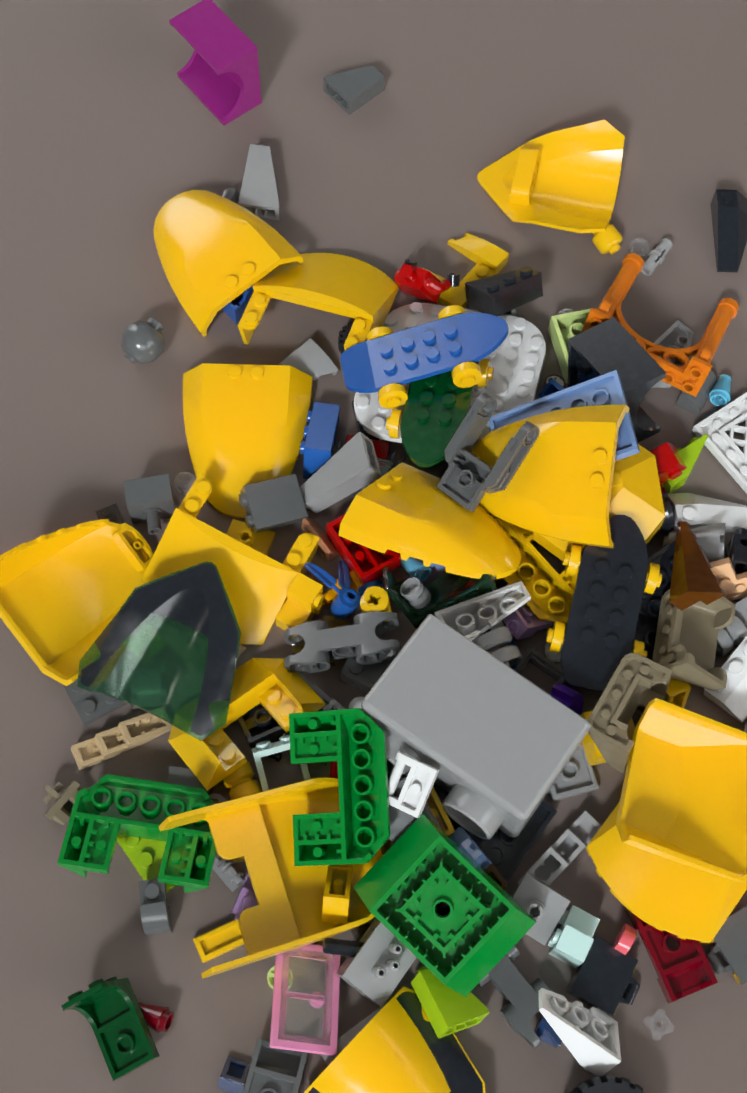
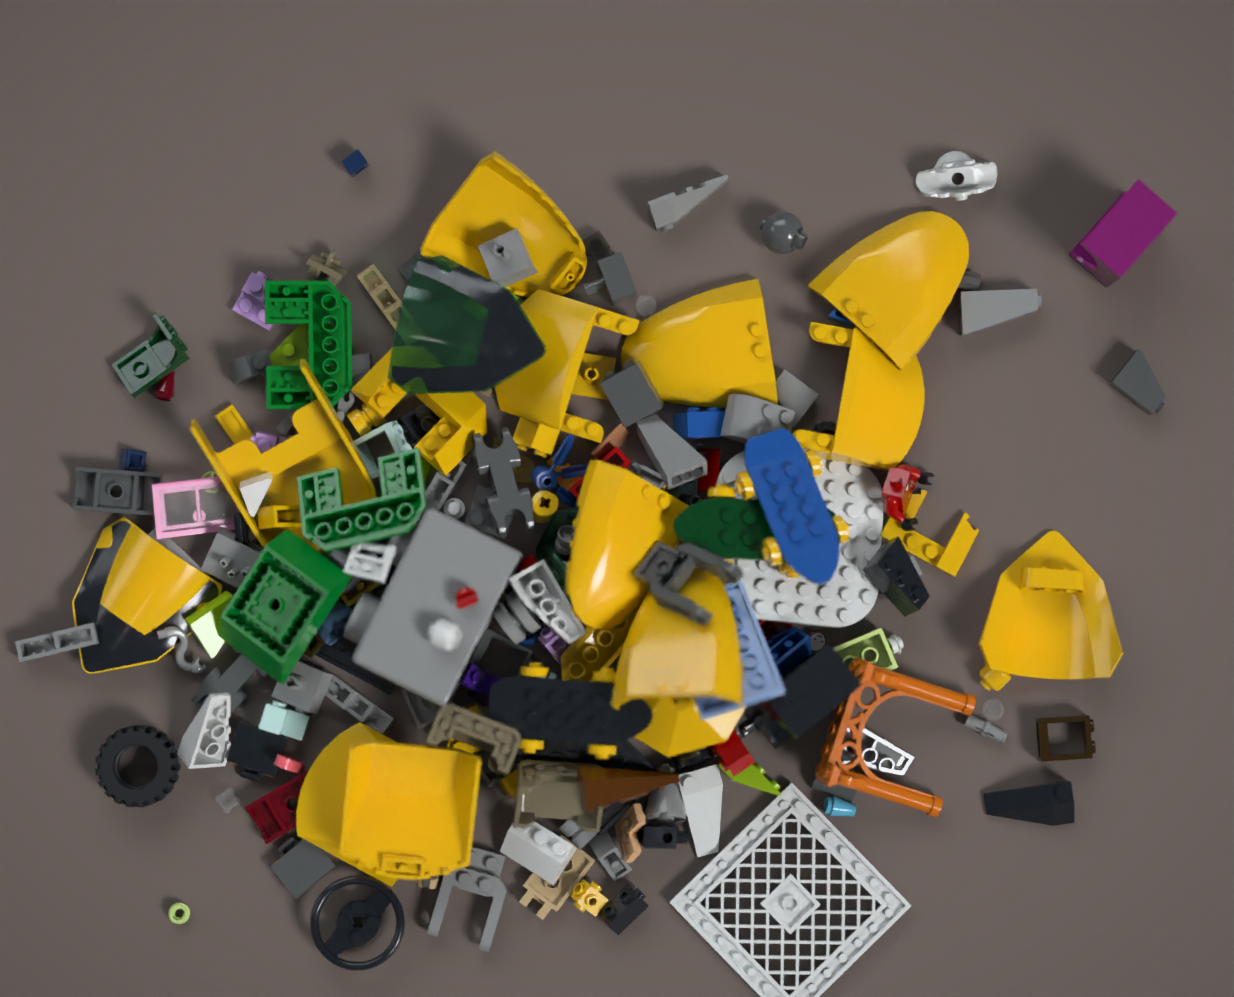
camera: 80 degrees right, 20 degrees up
(80, 893) = (251, 300): none -> lavender plate
(90, 435) = (671, 208): none -> light grey wedge
(99, 596) = (507, 258): none -> light grey brick
(128, 210) = (939, 184): none -> white piece
(301, 919) = (254, 490): none -> white slope
(324, 392) = (752, 417): none -> light grey brick
(451, 1053) = (174, 631): none -> light grey animal
(472, 674) = (466, 597): none -> red plate
(511, 704) = (445, 634): none -> white head
(671, 210) = (1043, 741): none -> dark brown window

